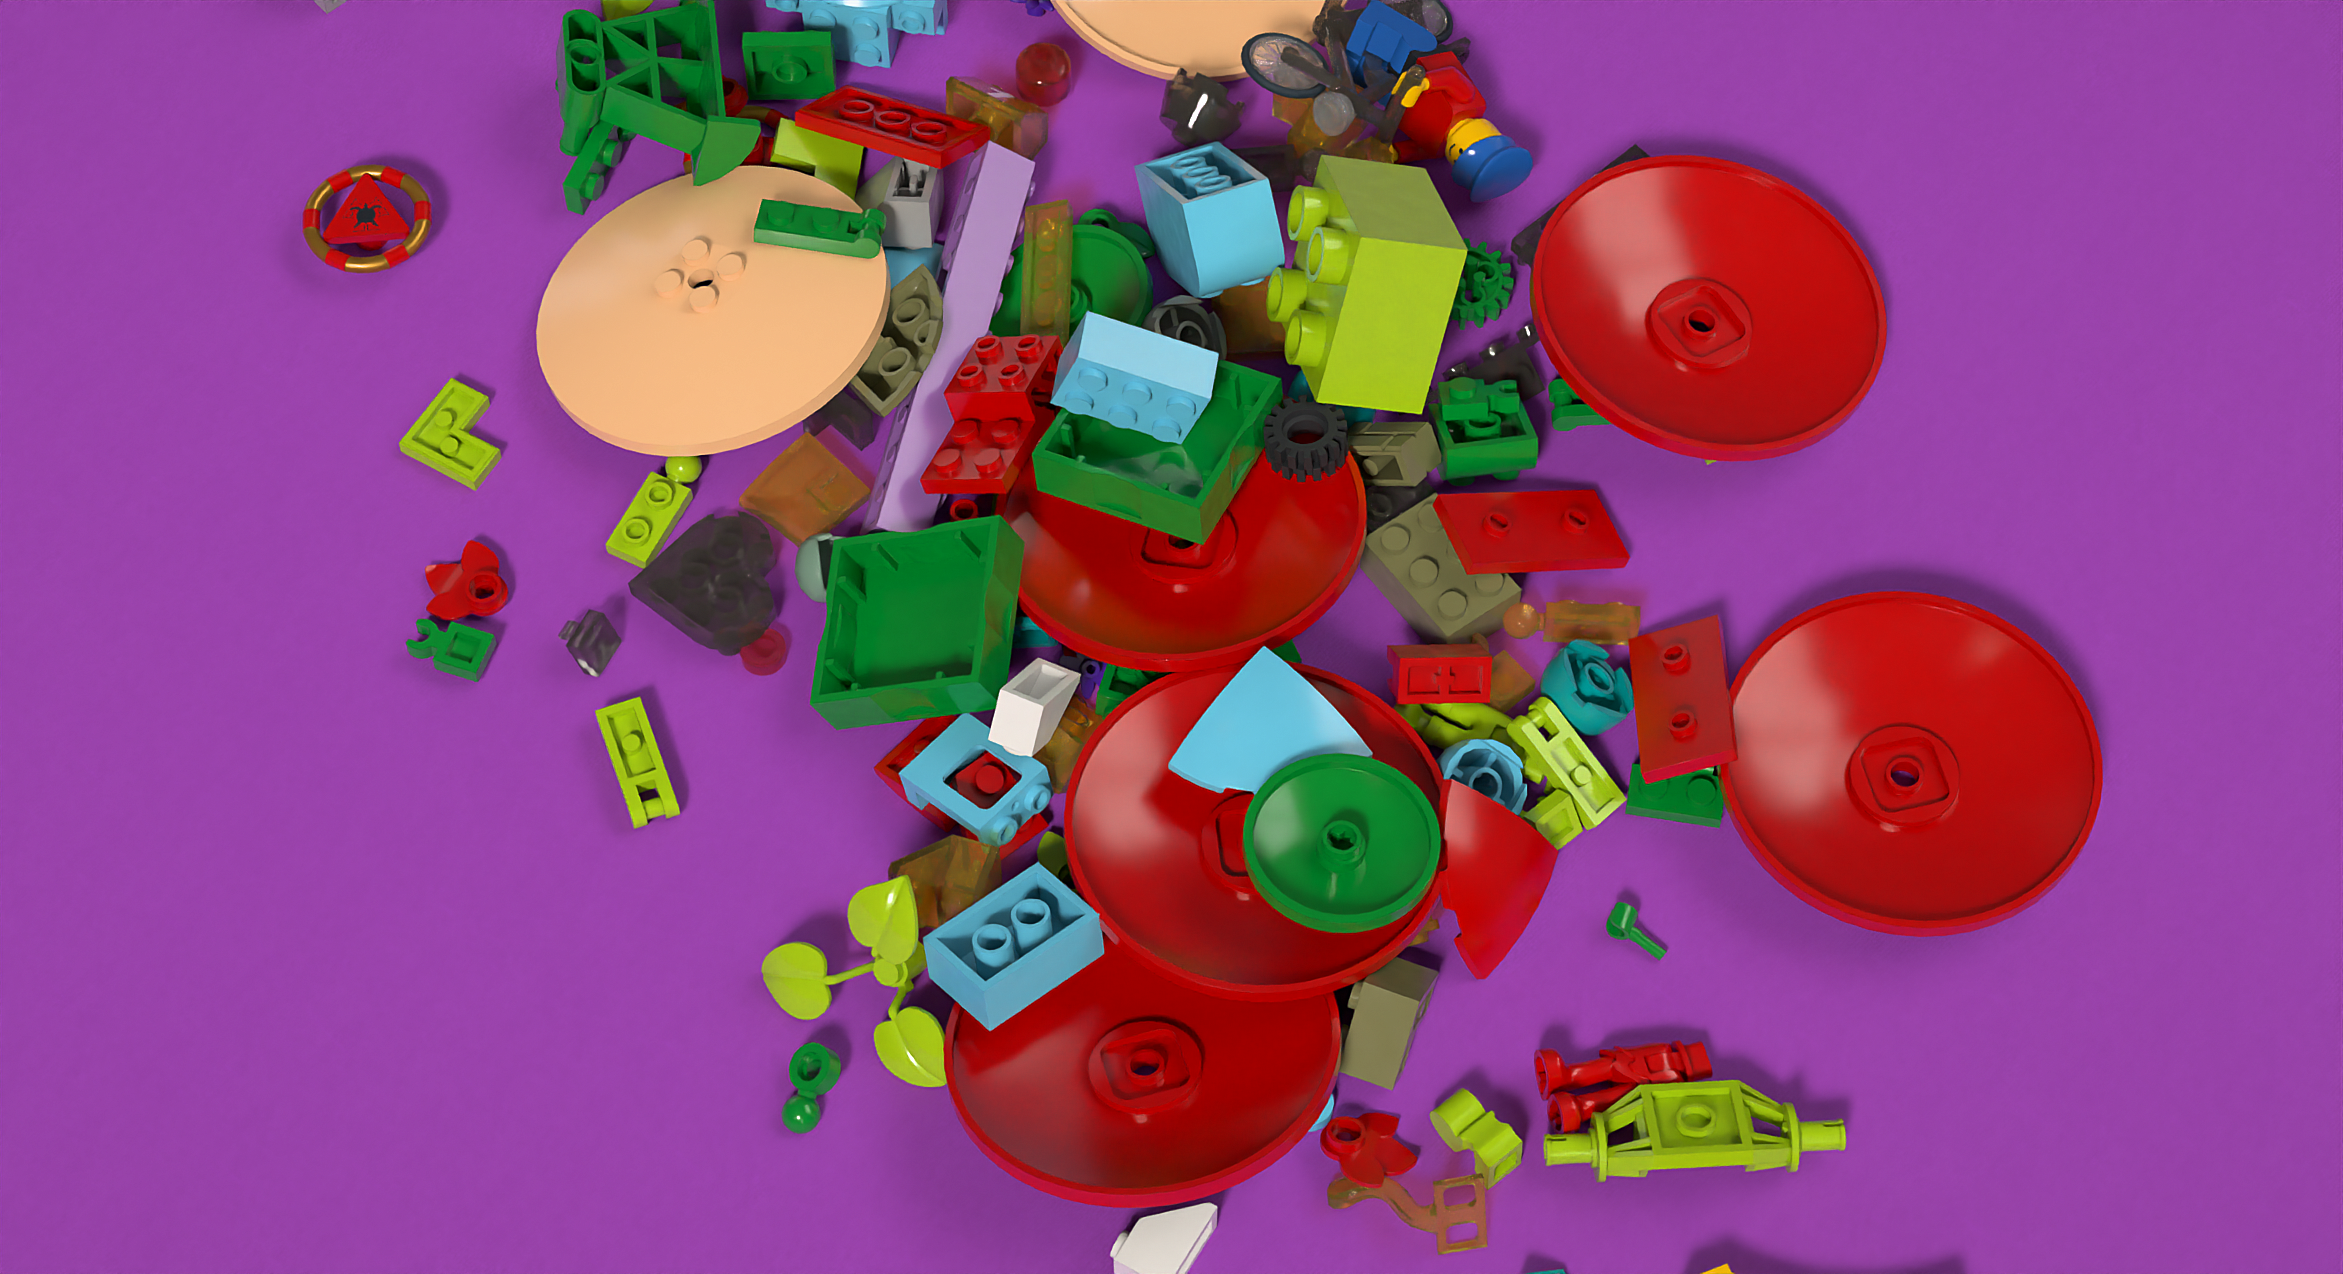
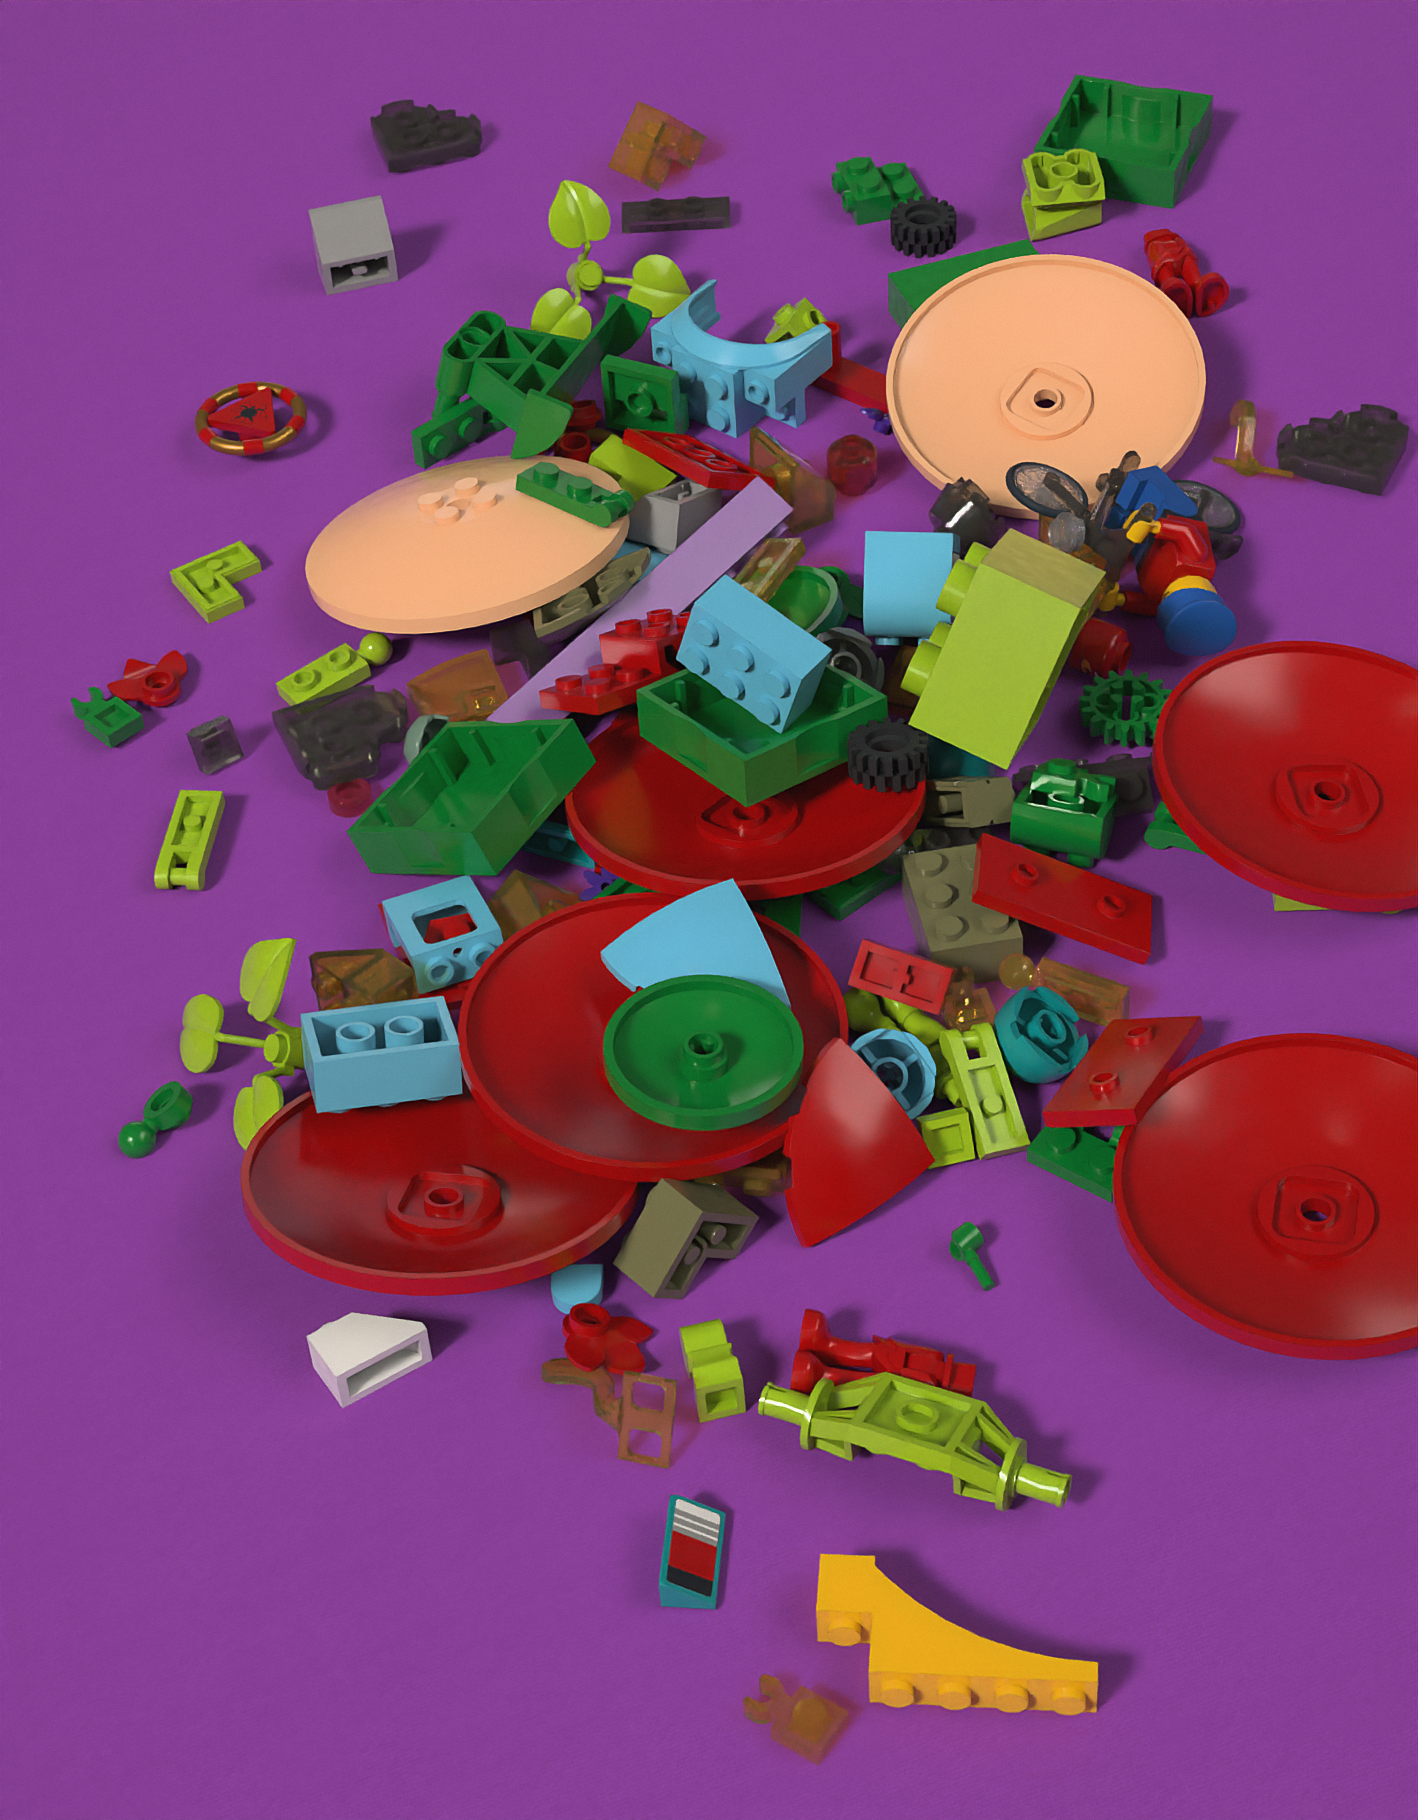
camera: 30 degrees right, 15 degrees down
(1032, 707) = (513, 875): white slope -> none

